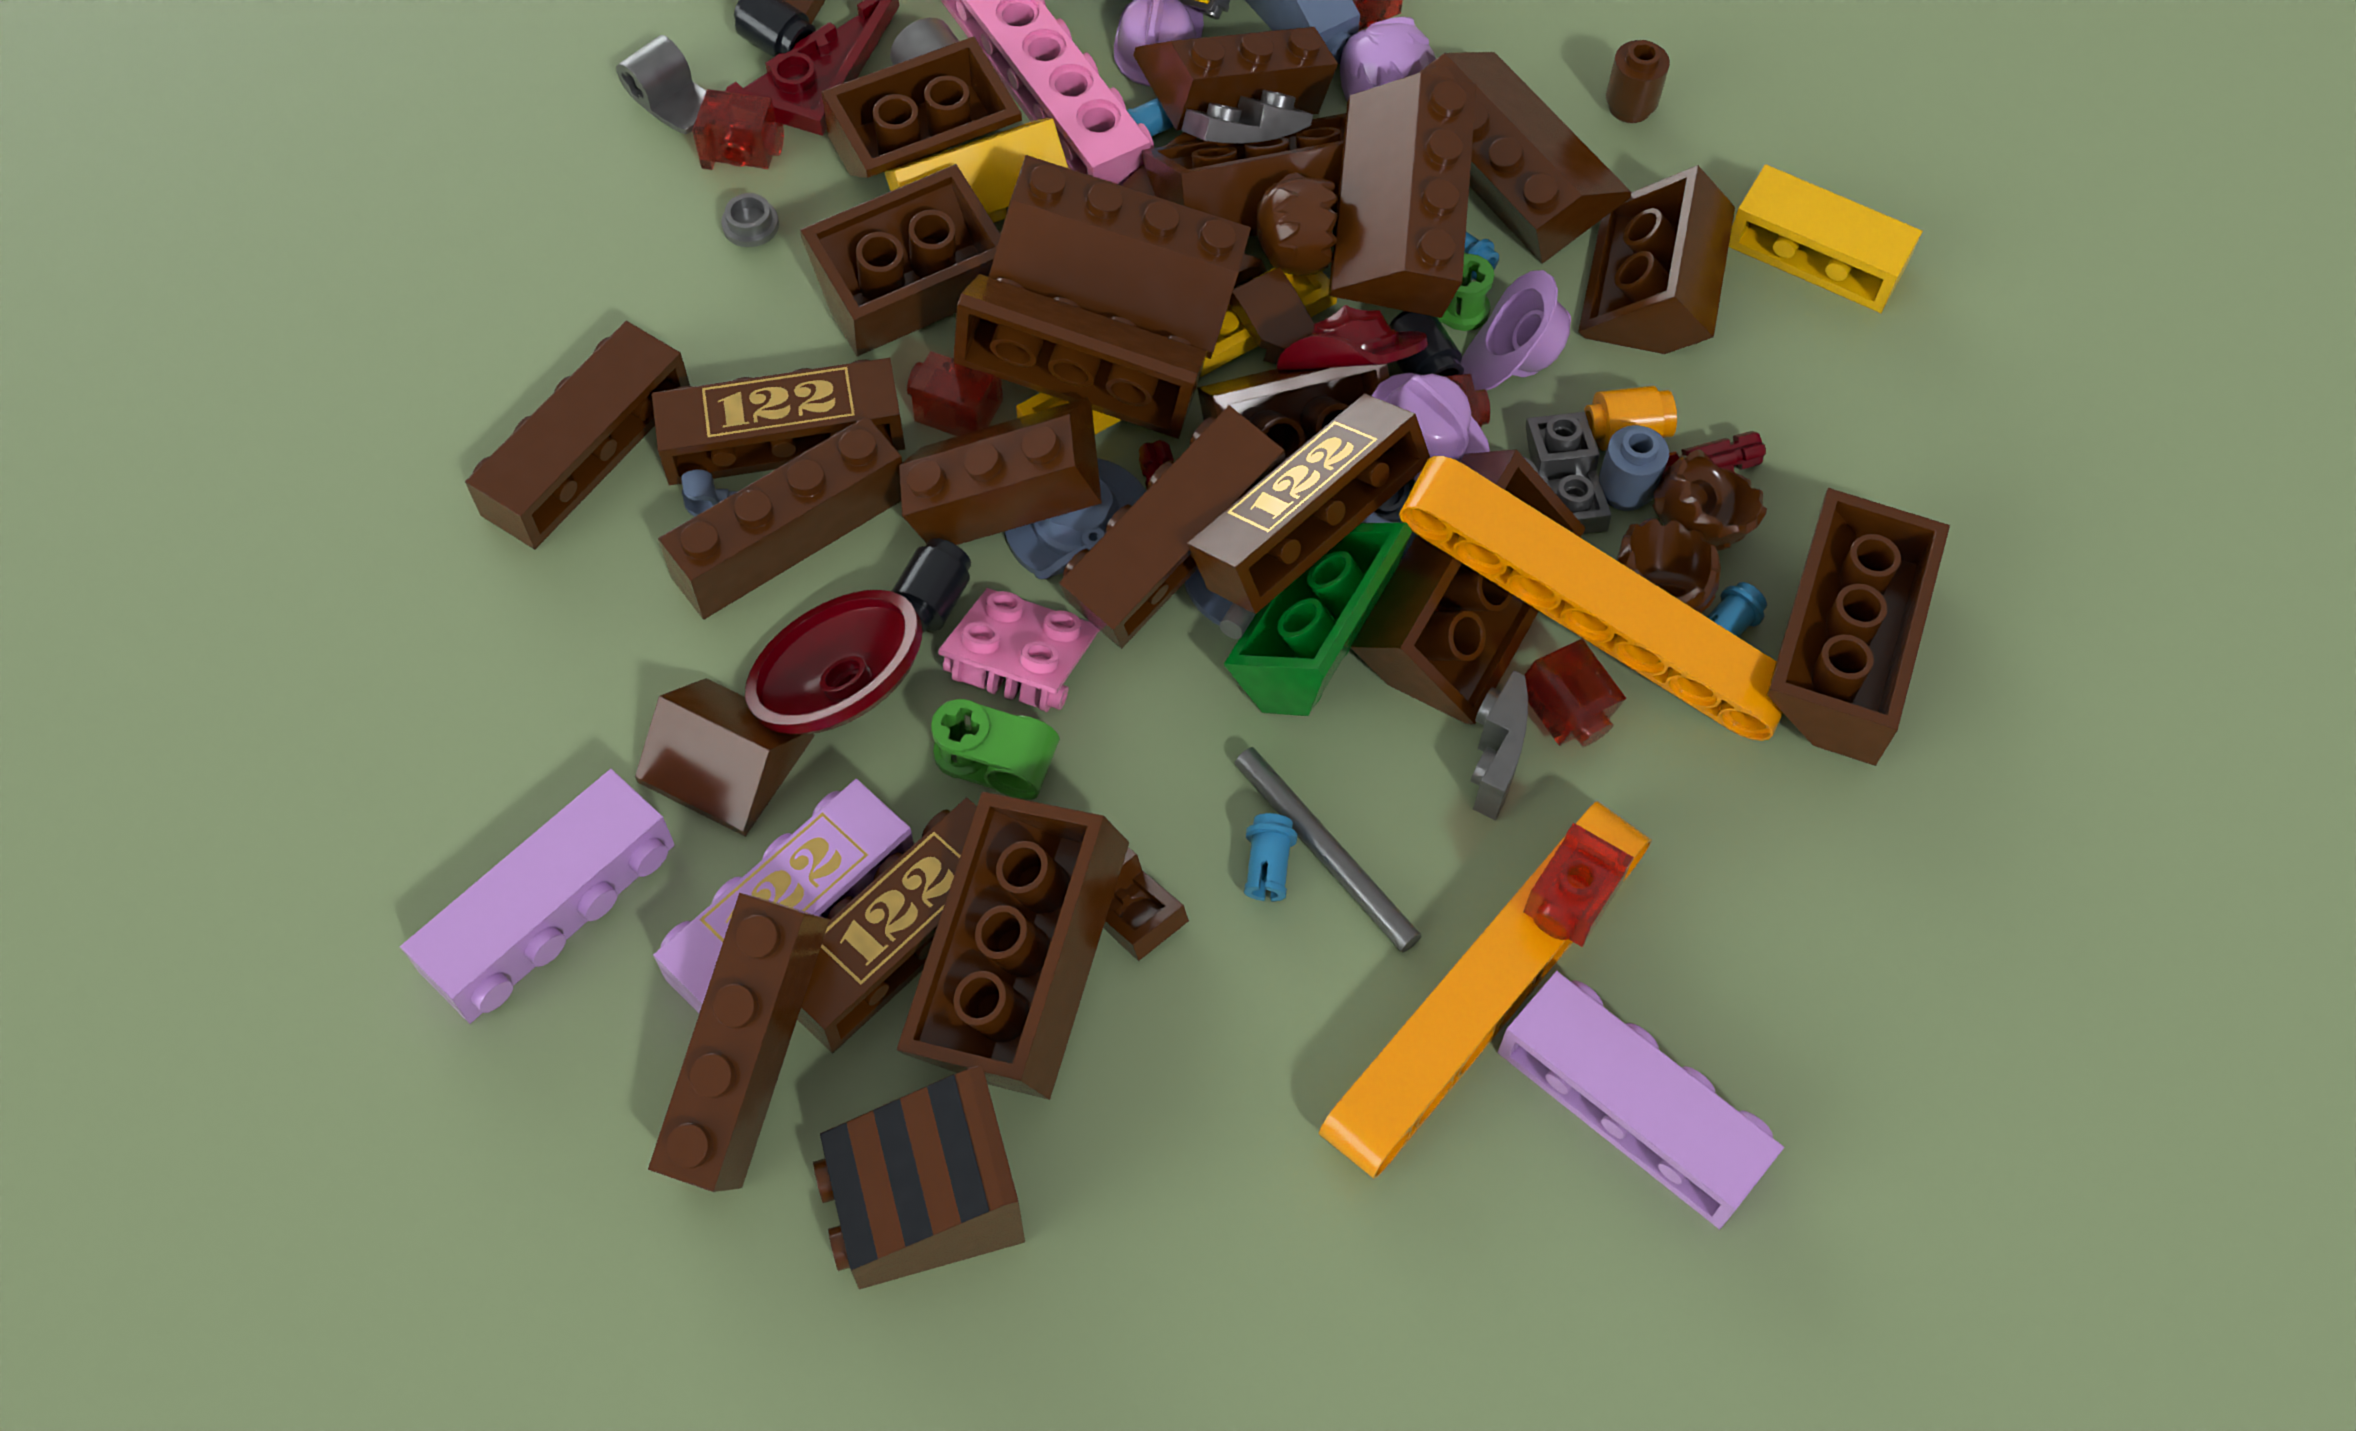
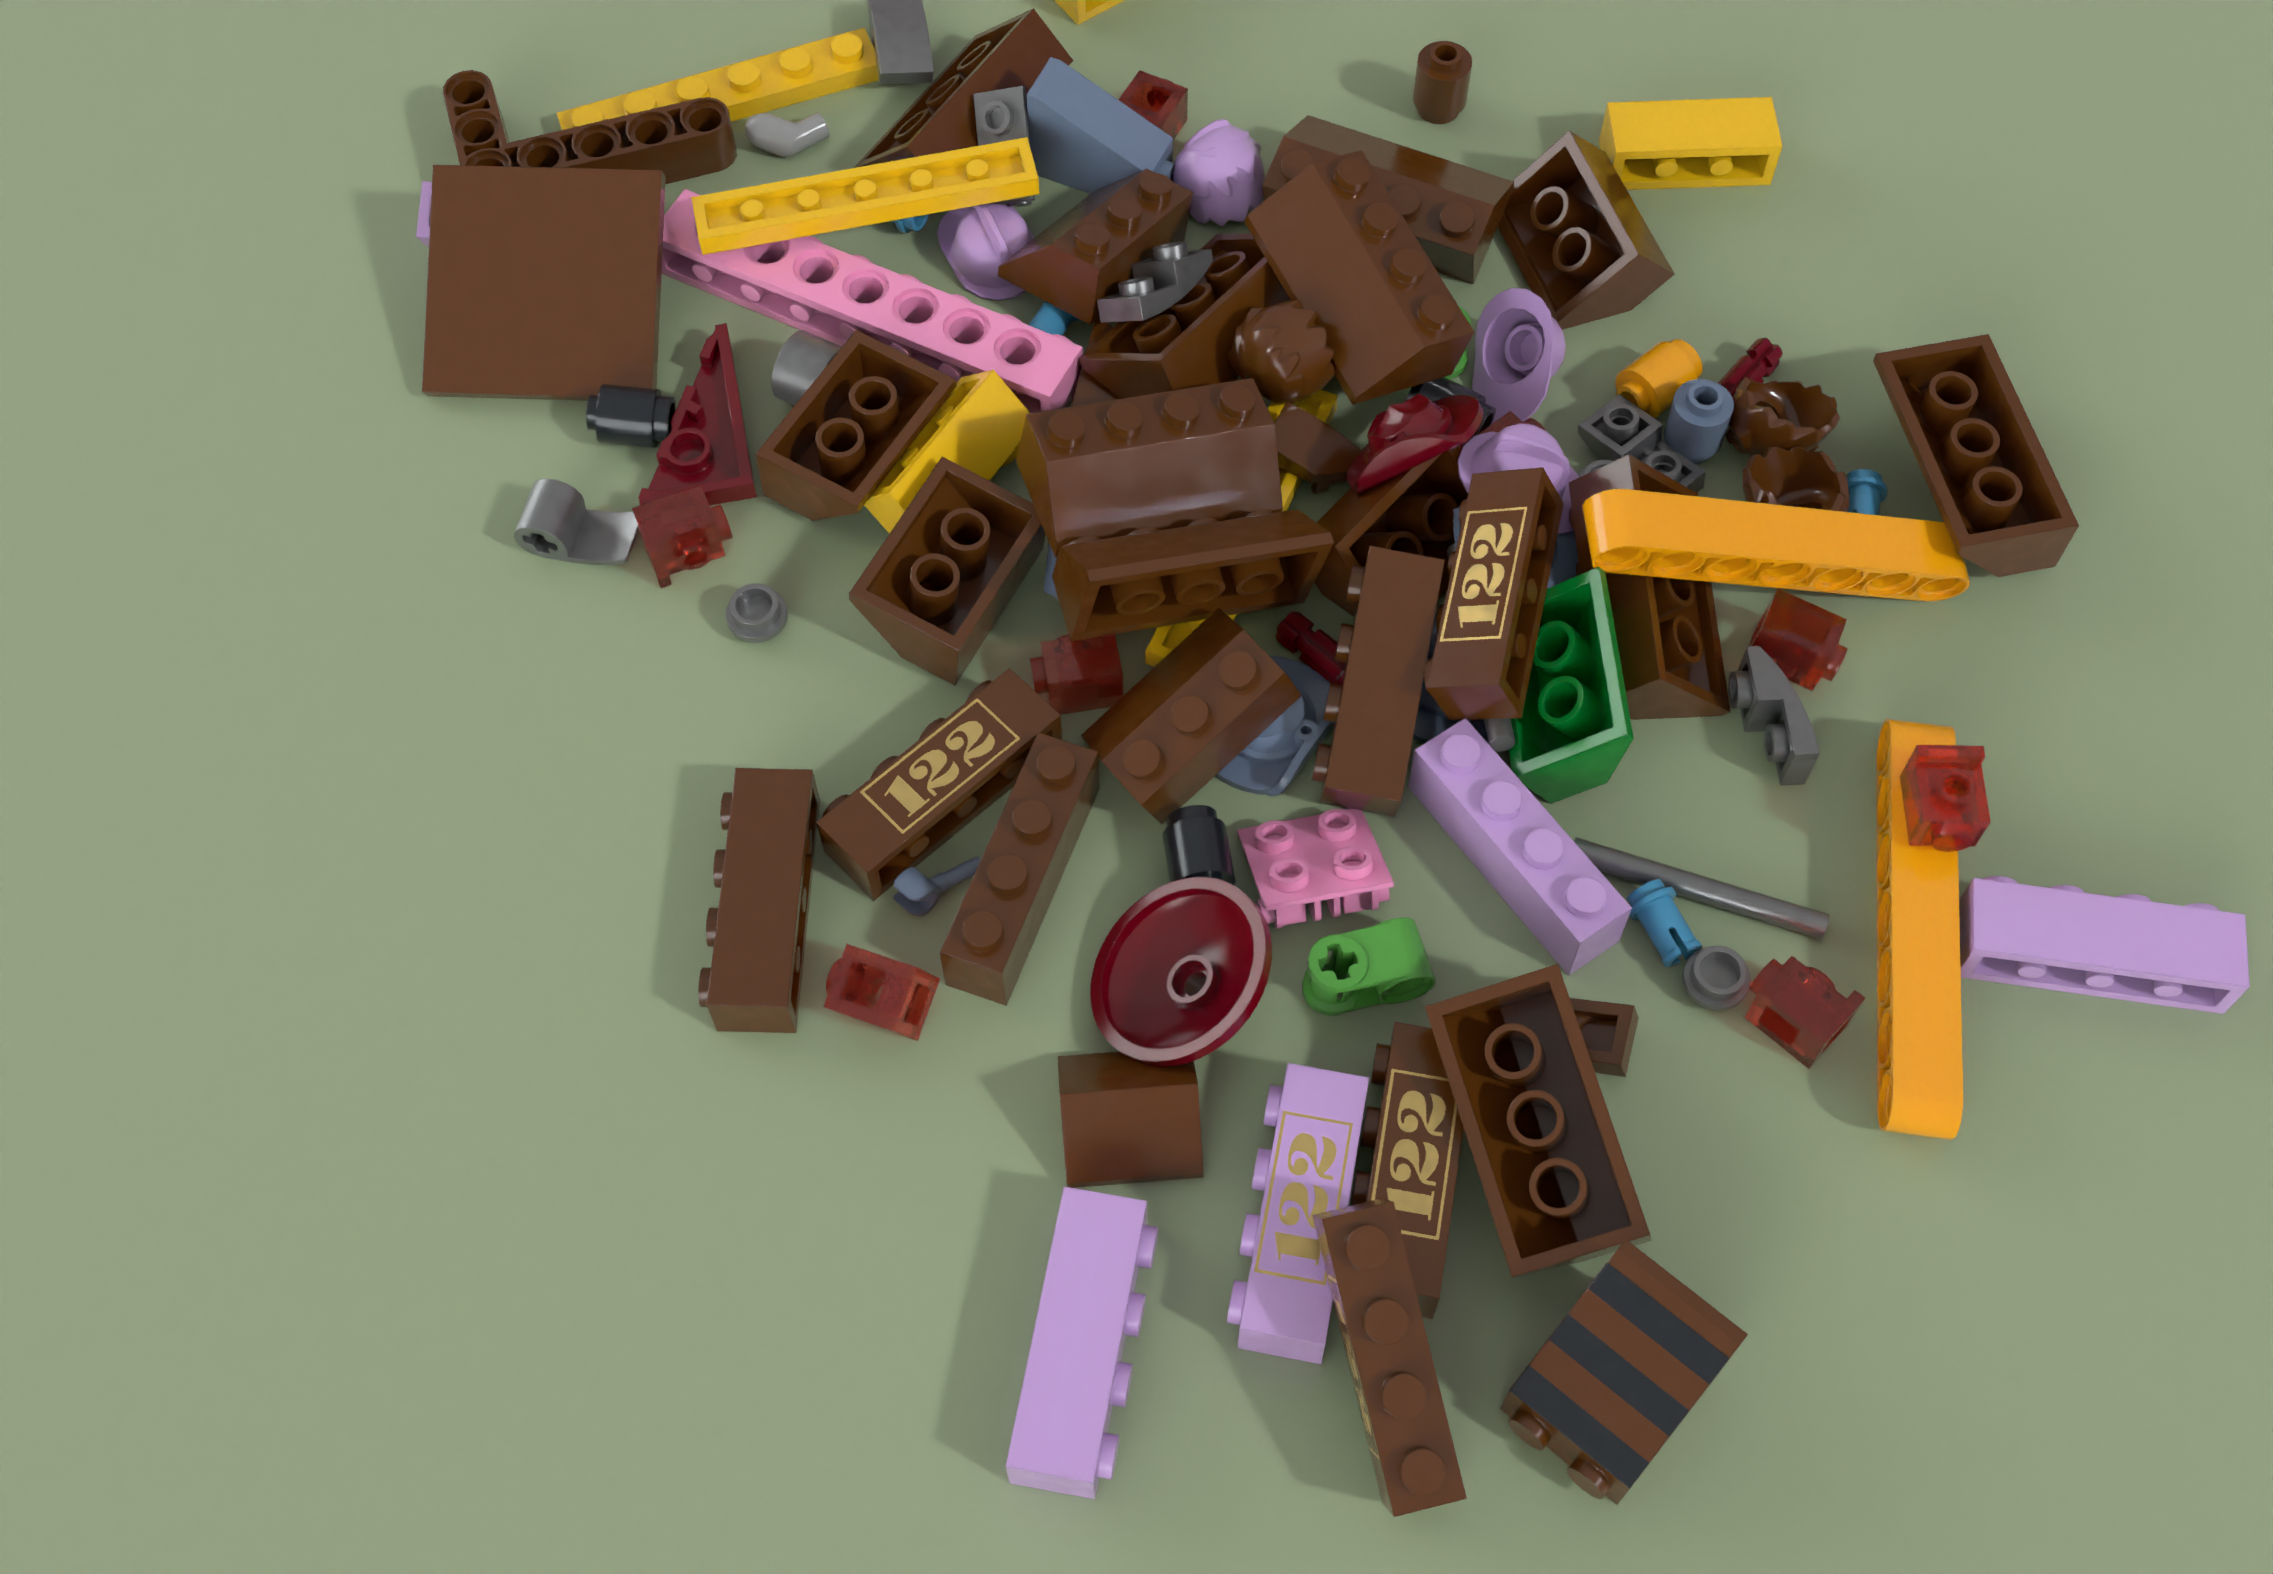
camera: 30 degrees left, 0 degrees up
(607, 551) = (903, 1000): none -> clear red brick
(1191, 725) = (1518, 846): none -> lavender brick
(1279, 928) = (1716, 978): none -> flat silver plate
(1327, 994) = (1800, 1008): none -> clear red brick

